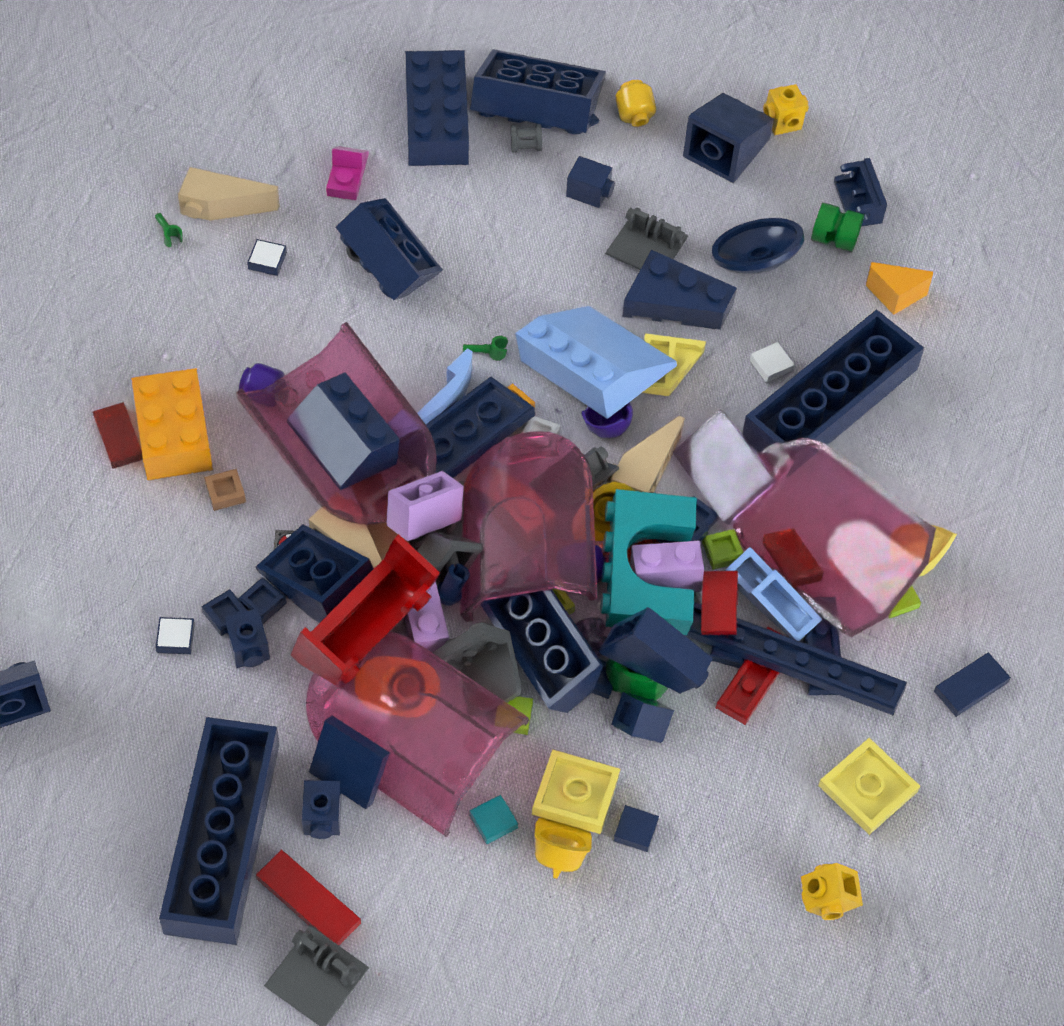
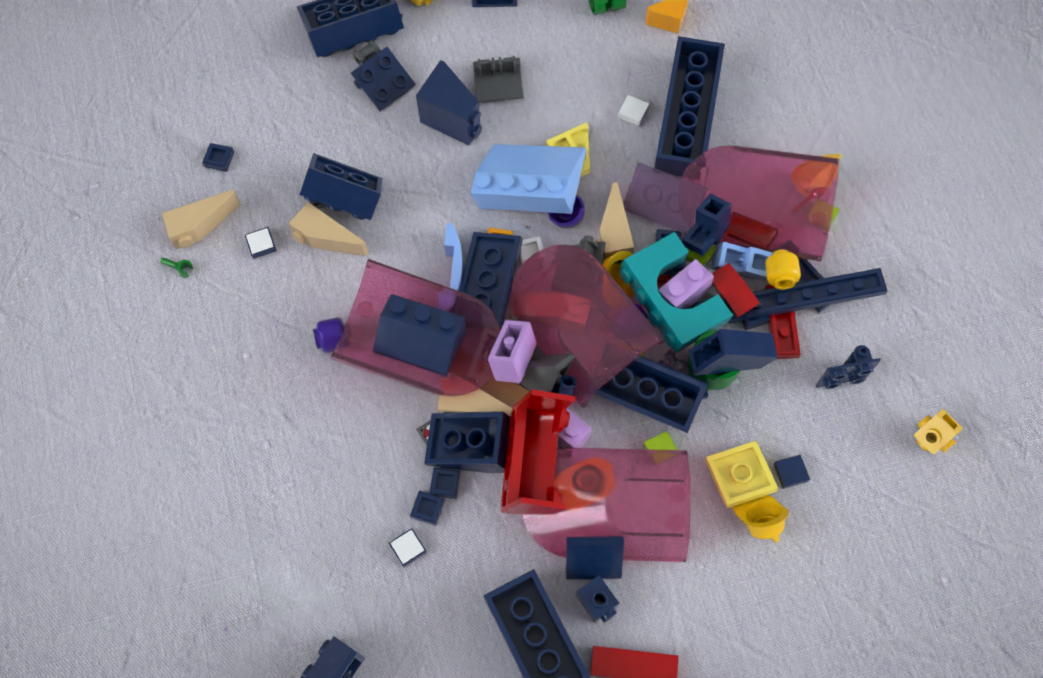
camera: 30 degrees left, 10 degrees up
(118, 435) = (258, 433): clear red tile -> none
(171, 424) = (291, 402): light orange brick -> none
(225, 489) = (361, 424): medium nougat plate -> none
(247, 638) = (459, 518): dark blue brick -> none
(292, 150) = (218, 157): none -> dark blue tile
(336, 284) = (324, 233): none -> tan slope
(346, 172) = (267, 150): dark pink slope -> none
(437, 108) = (294, 69): dark blue brick -> none
(486, 657) = (626, 429): dark grey bracket -> none
(493, 819) = (704, 527): teal tile -> none
(495, 349) = (459, 213): green hand -> none
(522, 171) = (382, 78): none -> dark blue hinge
(564, 234) = (449, 105): none -> dark blue slope
(590, 182) = (429, 56): dark blue brick -> none
(642, 717) = (741, 397): dark blue panel -> none
(678, 293) = (547, 100): dark blue wedge -> none
(751, 522) = (710, 226): none -> dark blue brick
(758, 245) = (571, 38): dark blue dish -> none
(786, 767) = (854, 369): none -> dark blue hinge
(790, 613) = (782, 269): none -> yellow head
(869, 786) = (902, 347): light yellow plate -> none
(972, 684) = (905, 242): dark blue tile -> none

